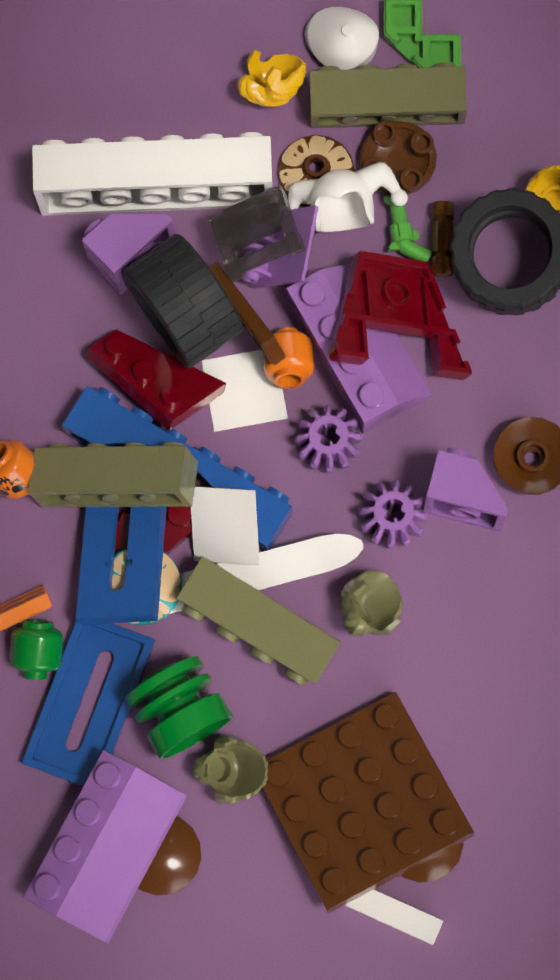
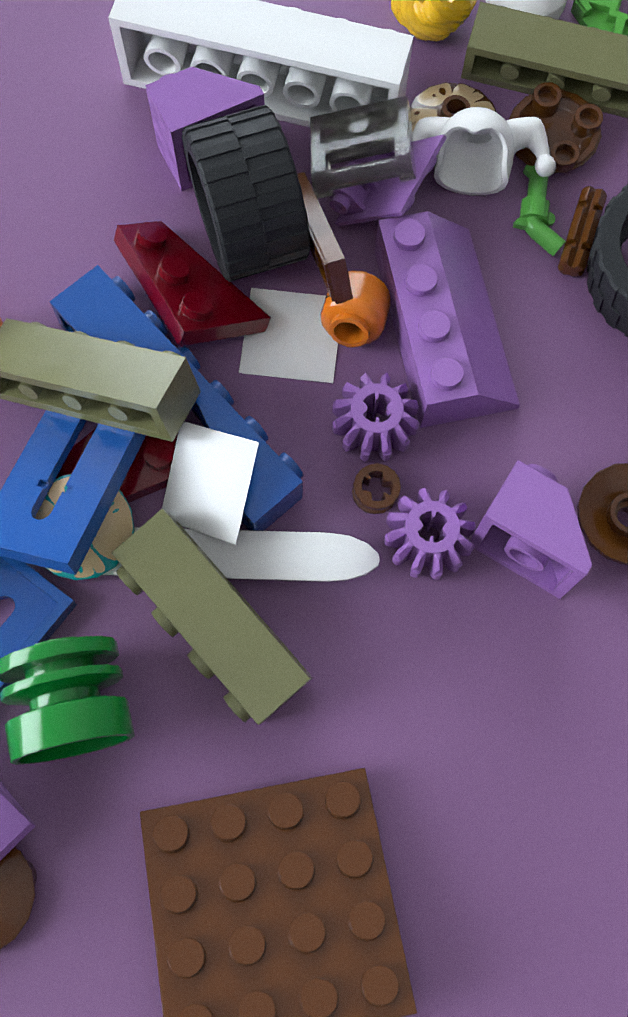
camera: 10 degrees right, 5 degrees down
(232, 770) = (109, 809): olive hair -> none
(338, 501) = (388, 479): none -> reddish brown bush
(371, 604) = (366, 640): olive hair -> none
(395, 298) = (513, 277): dark red wing -> none

